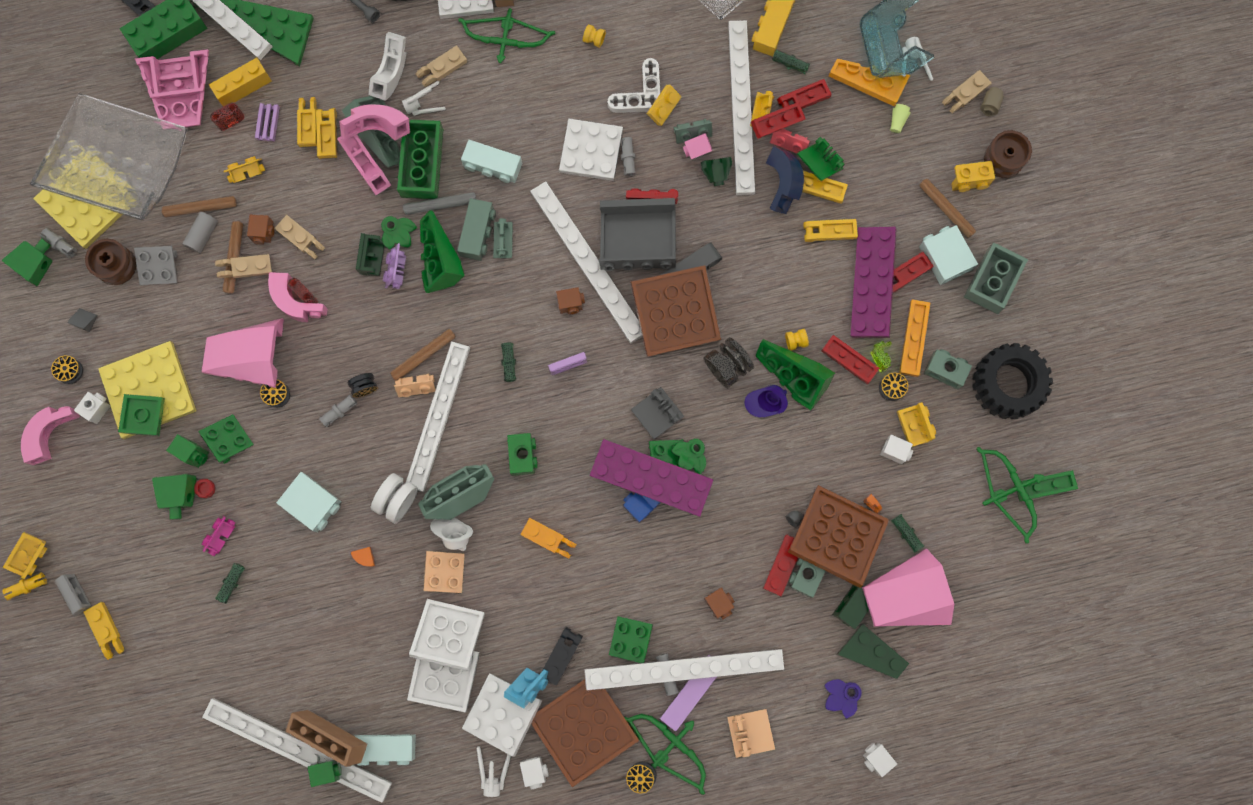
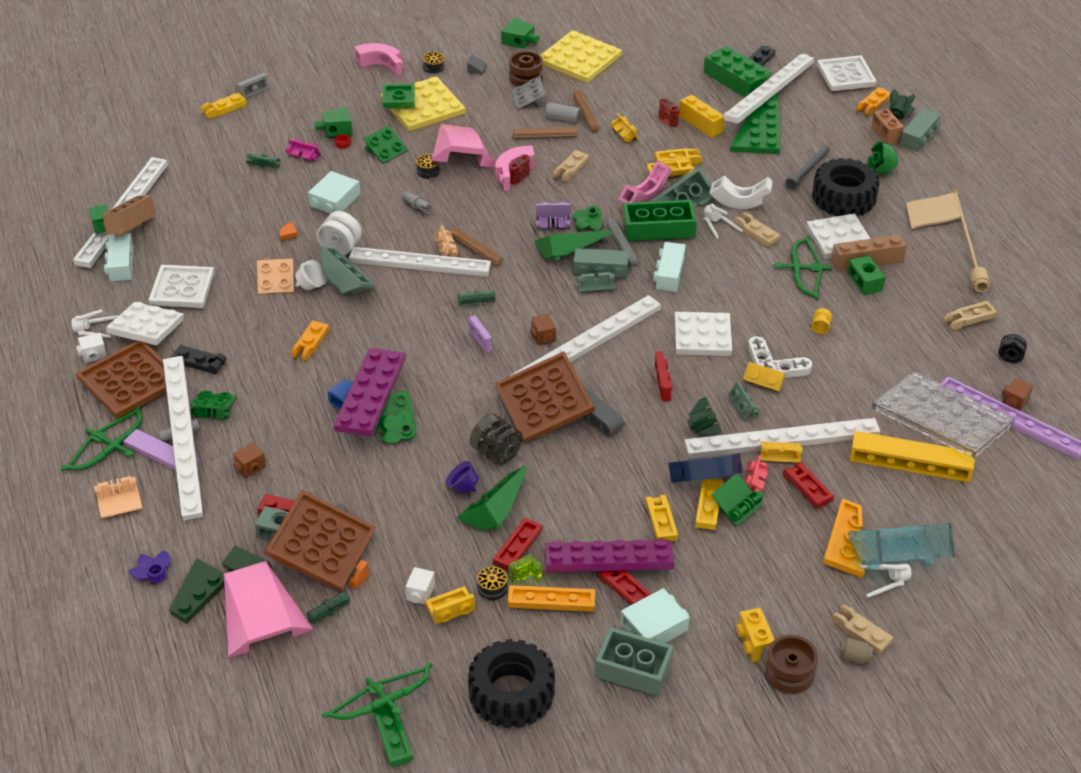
camera: 80 degrees right, 35 degrees down
(24, 586) = (257, 63): yellow pin -> none
(25, 554) = (282, 60): yellow bracket -> none
(58, 243) = (538, 45): light grey pin -> none
(92, 407) = (403, 75): white brick -> none
(111, 157) = (610, 53): clear slope -> none
(177, 86) = (689, 80): bright pink wedge -> none
(188, 451) = (370, 119): green brick -> none
(245, 266) = (537, 137): tan hinge -> none
(260, 229) = (572, 141): dark orange brick -> none
(268, 108) = (671, 137): lavender tile -> none
(362, 385) = (440, 209): black wheel -> none
(370, 255) = (572, 197): dark green hinge -> none
(375, 118) = (682, 171): bright pink arch -> none
(447, 634) = (218, 279): white plate -> none
(517, 443) = (388, 312): green brick -> none
(526, 687) = (168, 330): medium azure bracket -> none
(628, 157) = (701, 357): light grey pin -> none
(638, 234) = (619, 367): dark grey panel -> none
(641, 777) = (81, 419): wheel -> none
(657, 412) = (441, 402): dark grey hinge -> none
(697, 146) = (725, 401): bright pink brick -> none
(777, 120) = (769, 453): red plate -> none
(790, 61) = (845, 470): clear green pin -> none
(796, 339) = (532, 498): yellow wheel -> none
(878, 759) = (84, 598): white brick -> none
(899, 117) = (809, 566): yellowish green cone -> none
(936, 369) = (520, 624): sand green brick -> none
(952, 213) = (712, 620): medium nougat axle -> none

